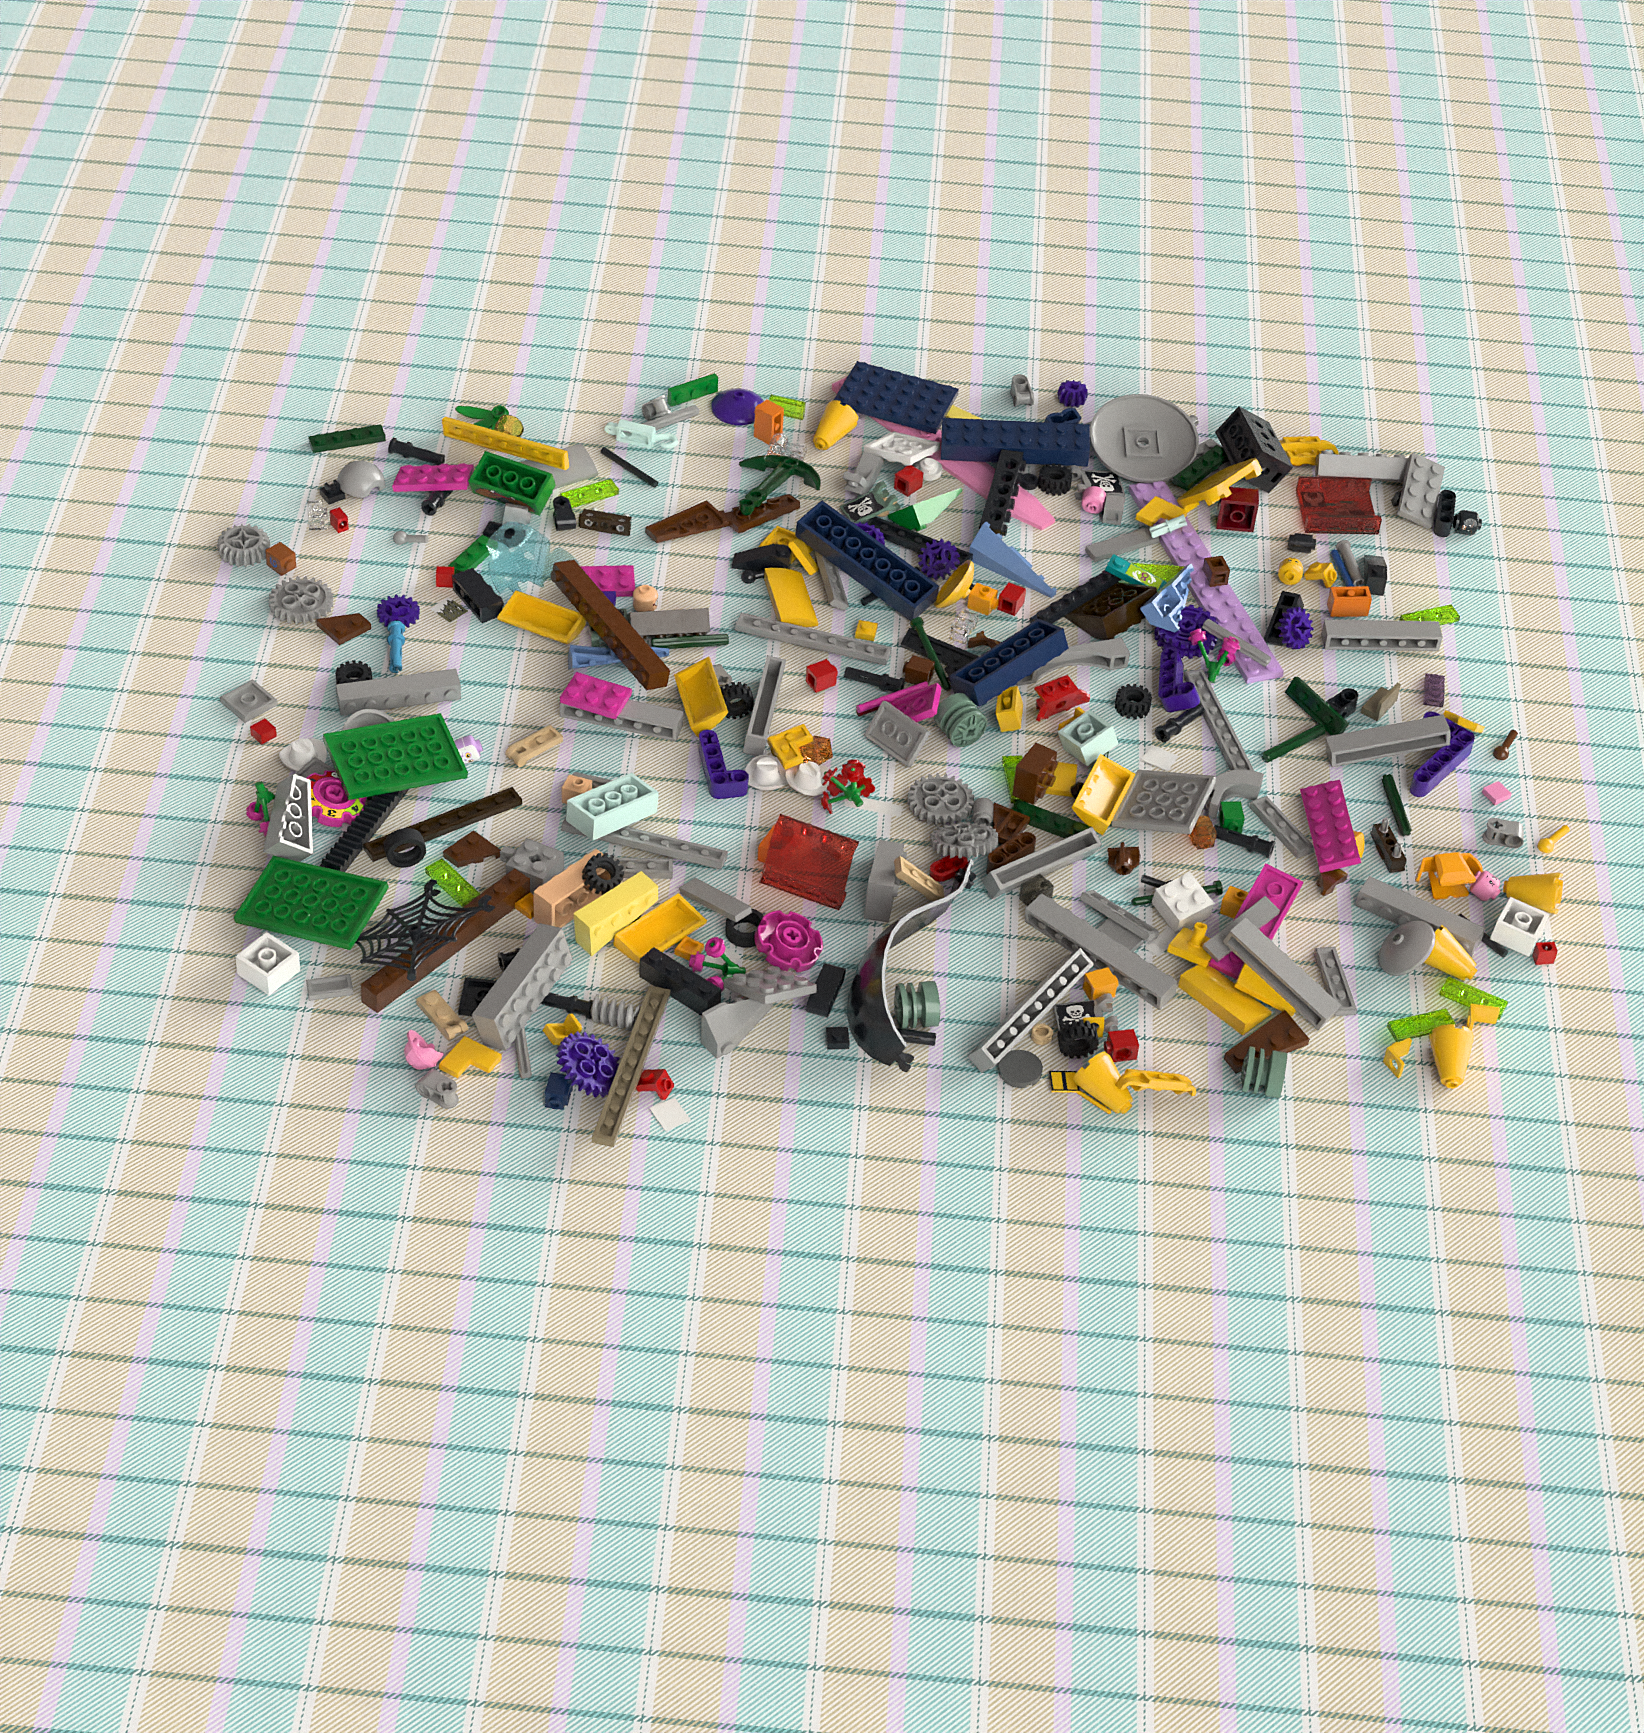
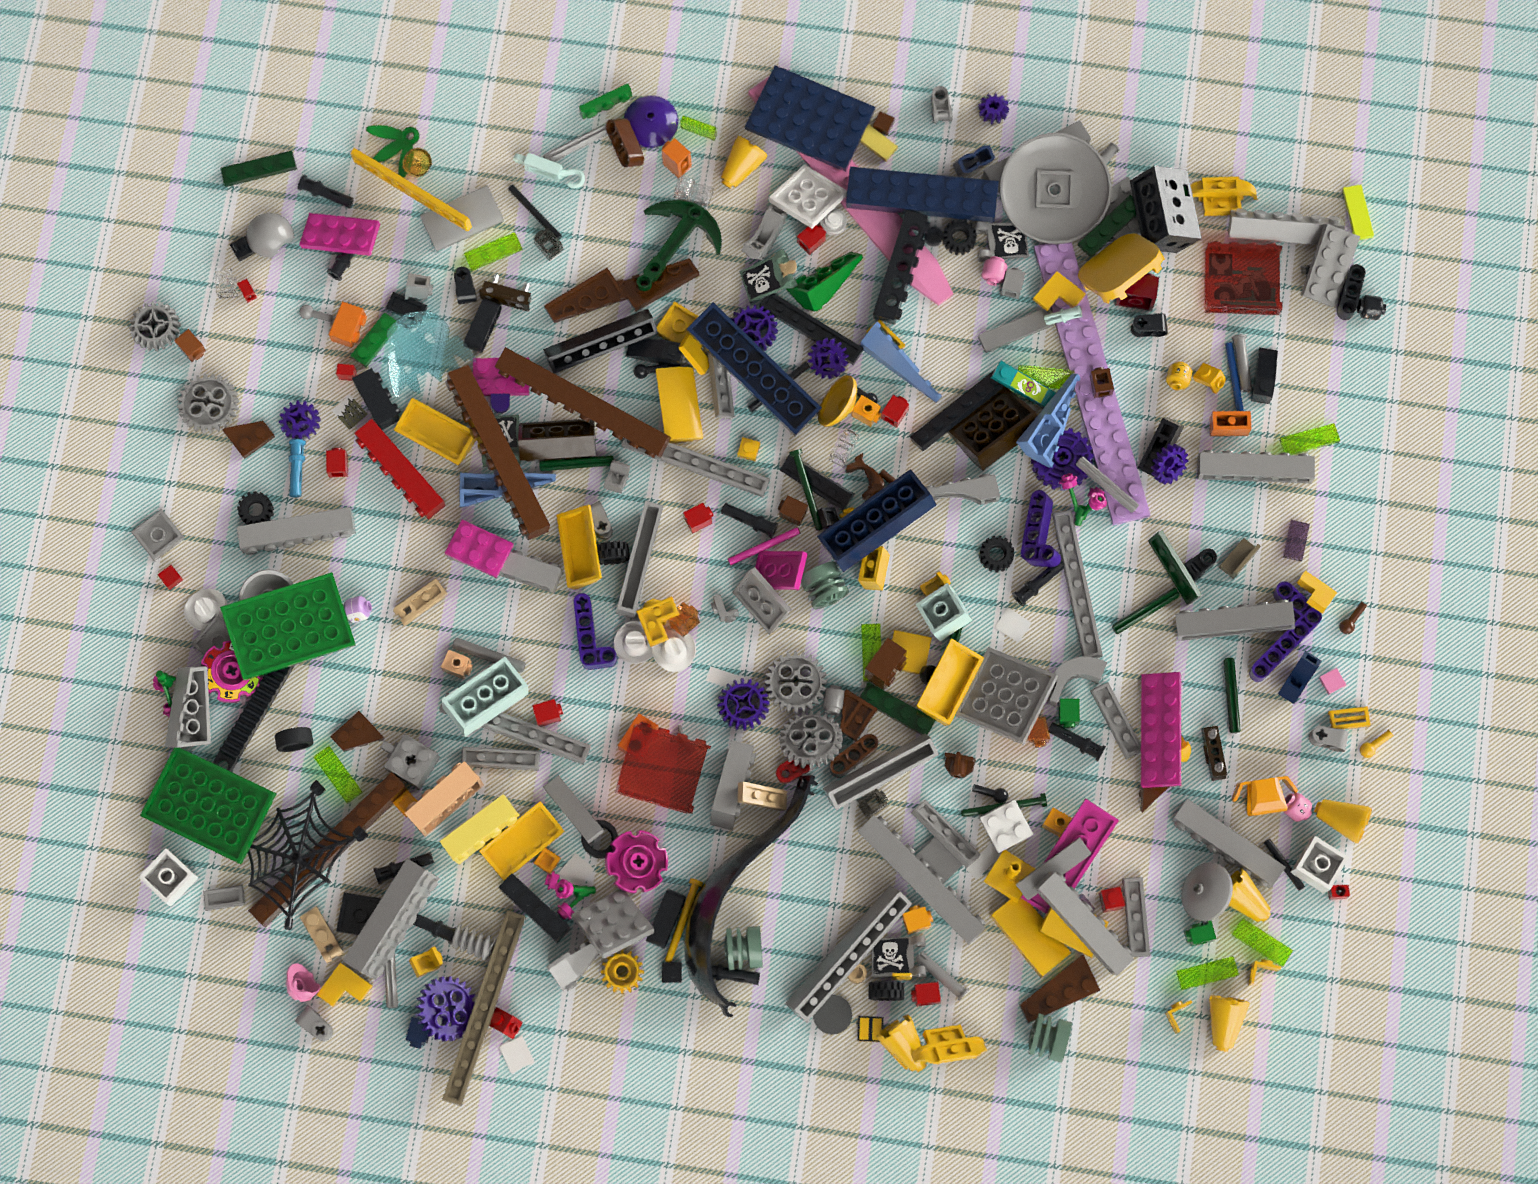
camera: 10 degrees right, 30 degrees up
(439, 642) = (337, 462): none -> red brick
(444, 542) = (347, 324): none -> orange brick
(451, 820) = (333, 697): dark brown tile -> none
(506, 646) = (400, 469): none -> red brick
(512, 482) = (415, 247): green brick -> none
(584, 541) = (482, 325): none -> black beam
(606, 863) = (459, 788): black tyre -> none
(645, 598) = (536, 409): light nougat head -> none
(646, 485) = (544, 236): none -> clear smoke window
(655, 408) = (566, 134): light grey piece -> none
(679, 826) = (547, 712): none -> red brick
(694, 588) = (583, 402): none -> reddish brown brick
(706, 549) = (600, 341): none -> black brick
(715, 415) = (625, 142): none -> reddish brown beam
(734, 647) = (617, 476): none -> light grey bracket
(783, 1035) = (626, 982): none -> yellow gear
(853, 961) = (695, 884): none -> yellow bar
(855, 747) = (718, 607): none -> light grey bracket
(859, 785) = (708, 674): red plant -> none
(887, 817) = (747, 697): none -> dark purple gear
(968, 404) = (883, 123): none -> reddish brown piece
(1058, 696) = (921, 553): red piece -> none
(1142, 1035) = (941, 975): none -> light grey pin
(1254, 537) = (1151, 325): none -> black piece
(1301, 543) = (1197, 334): black brick -> none
(1308, 959) = (1111, 899): none -> red brick
(1408, 989) = (1200, 934): none -> green brick
(1433, 453) = (1358, 211): none -> neon yellow tile
(1463, 786) = (1299, 677): none -> dark blue brick
(1534, 823) = (1332, 720): none -> yellow tile

